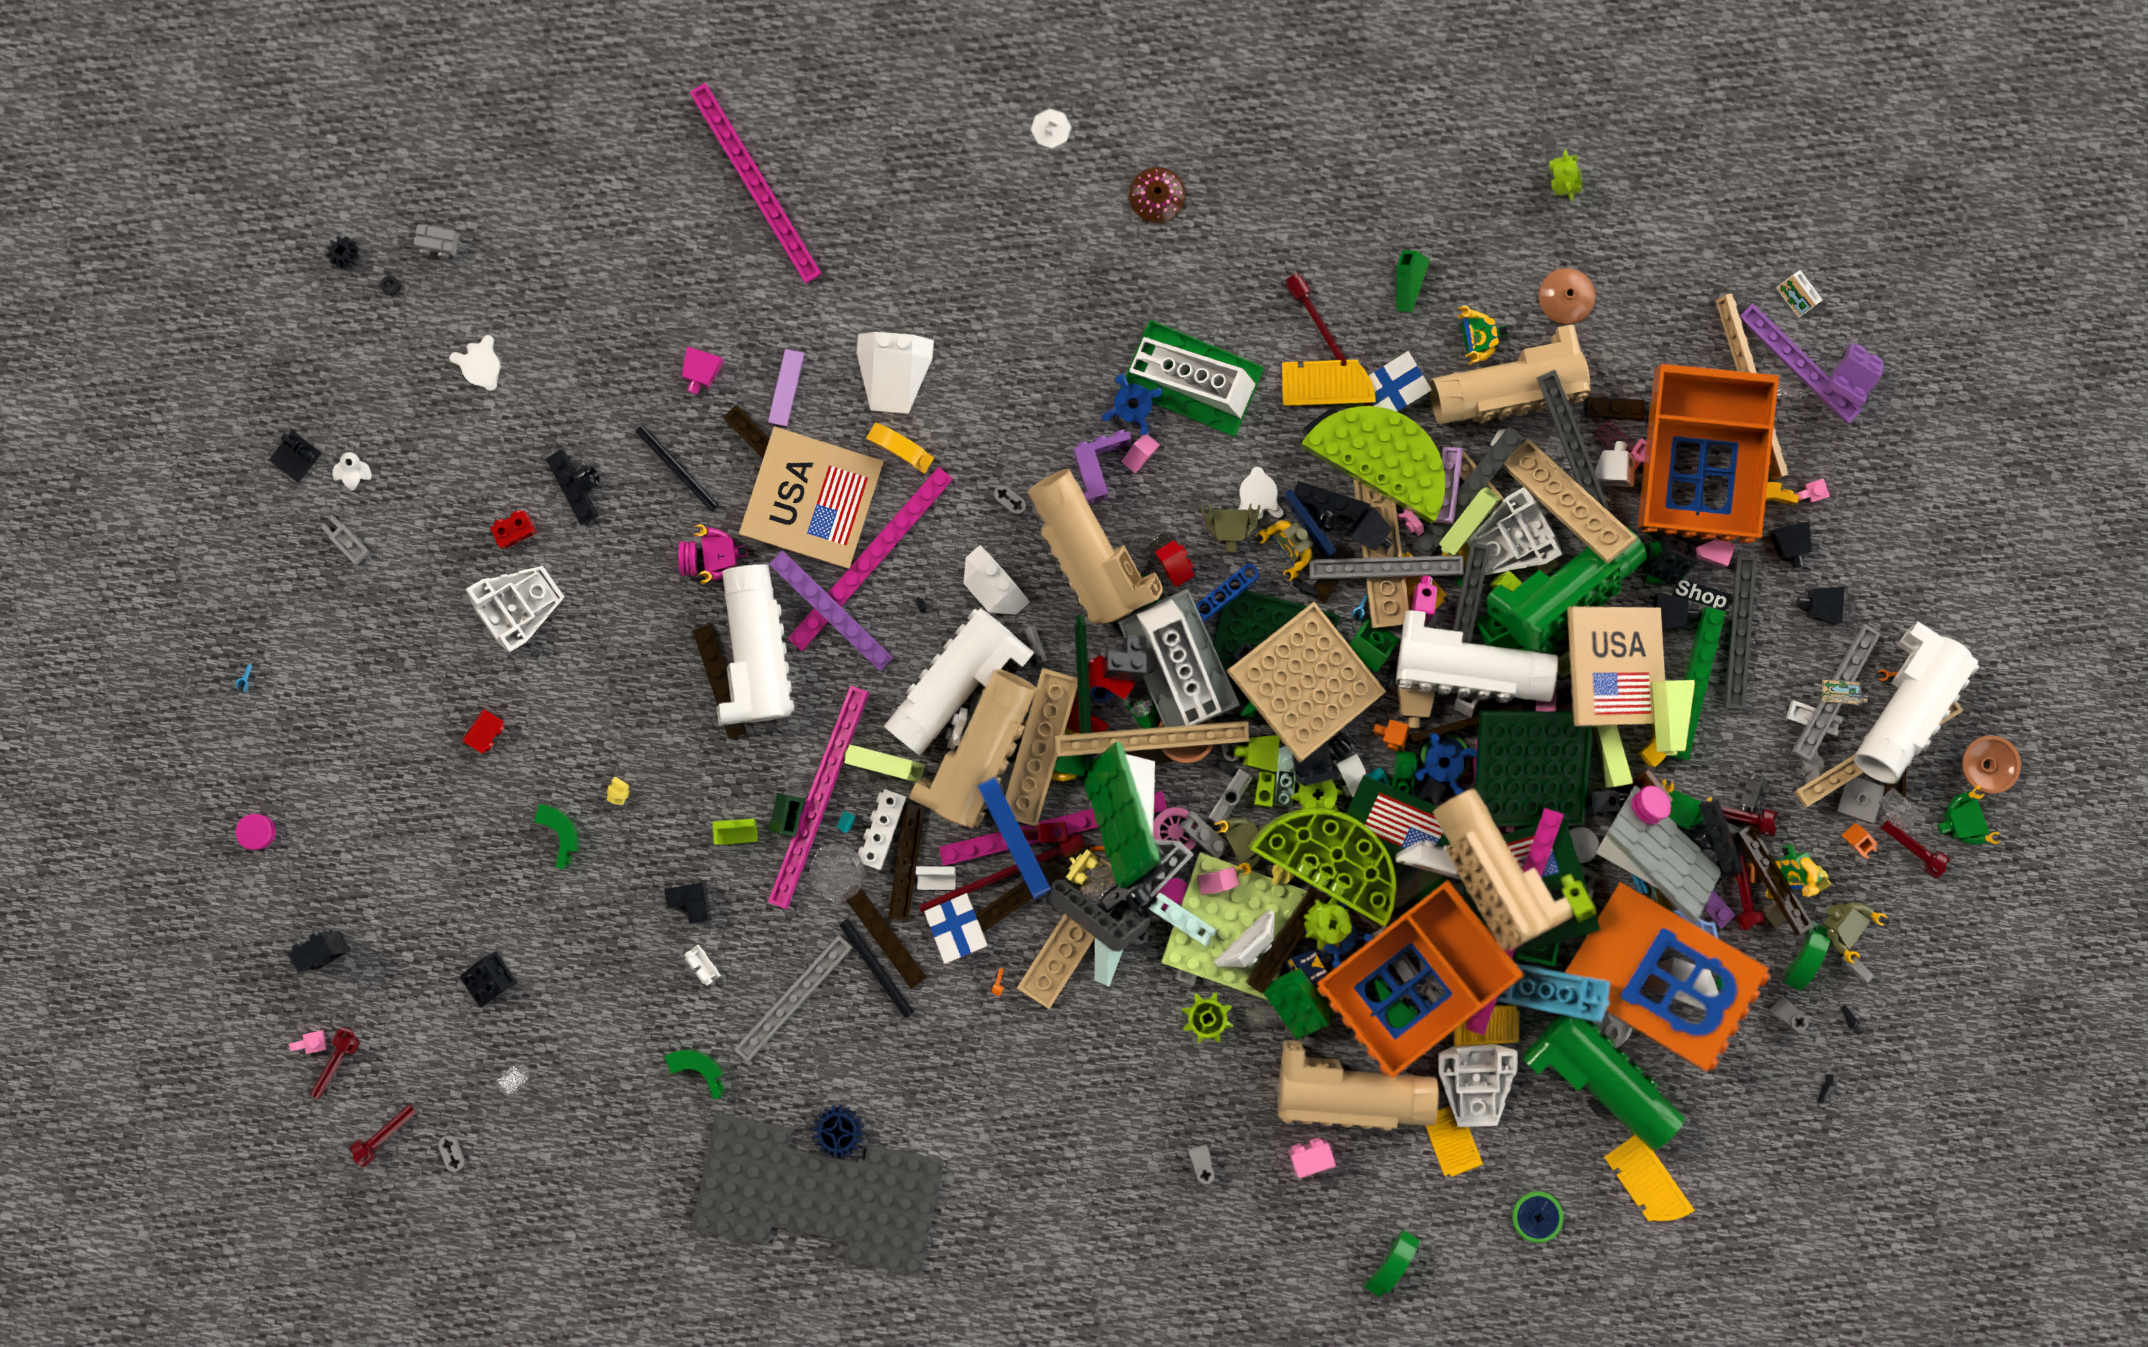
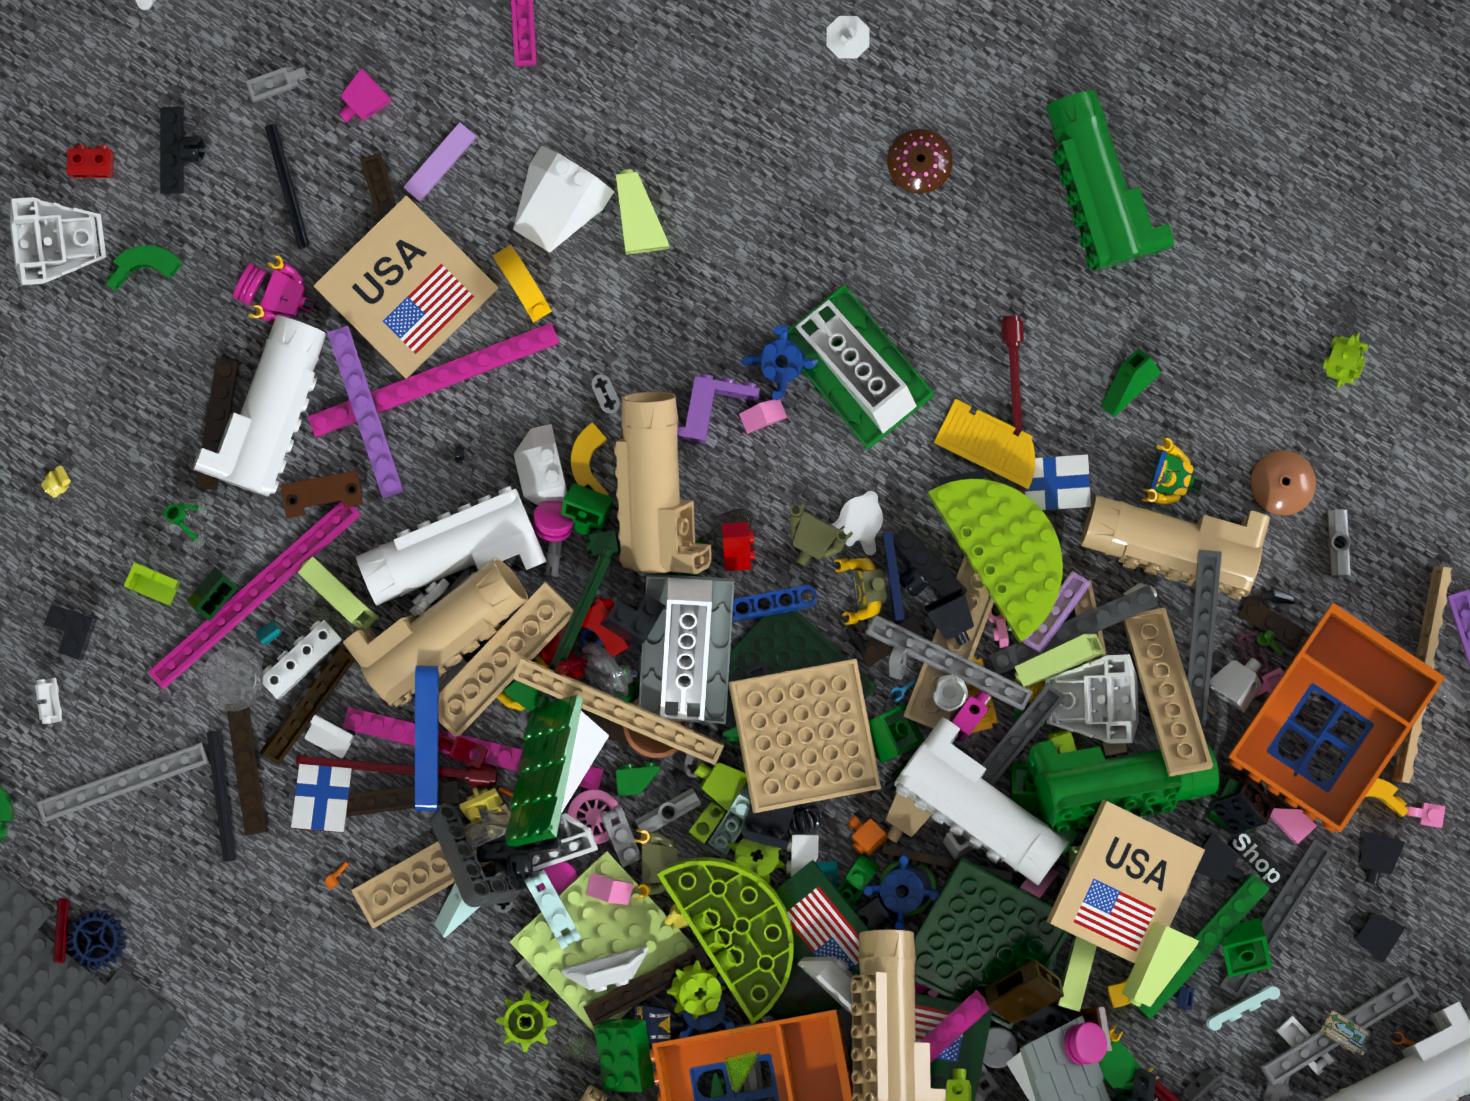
camera: 25 degrees right, 0 degrees up
(593, 581) = (142, 257): none -> green arch
(625, 393) = (274, 83): none -> light grey hinge
(725, 768) = (175, 515): none -> plant
(806, 1139) = (61, 930): none -> dark red axle
(829, 690) = (321, 491): none -> reddish brown brick
(964, 351) = (639, 221): none -> yellowish green slope
(1016, 546) = (583, 449): none -> yellow arch
(1022, 618) = (549, 522): none -> dark pink head
(1043, 595) = (586, 508): none -> green brick
(1066, 615) = (599, 540): none -> dark green brick
(1097, 722) = (571, 665): none -> dark red axle
(1124, 713) = (605, 671): none -> clear tile
(1191, 786) = (634, 780): none -> green slope
(1323, 158) = (1108, 215): none -> green piece
(1347, 588) = (898, 663): none -> light grey beam
(1397, 965) = (739, 1067): none -> clear neon green slope
(1400, 590) = (950, 693): none -> white hair
(1583, 790) = (1023, 992): none -> dark brown piece
(1609, 385) = (1277, 596): none -> black bar
(1621, 422) = (1267, 638): none -> bright green hand
(1628, 308) = (1338, 528): none -> light grey piece
(1703, 730) = (1184, 998): none -> dark blue plate
(1733, 666) = (1246, 949): none -> green slope
(1747, 720) = (1234, 1011): none -> light aqua plate

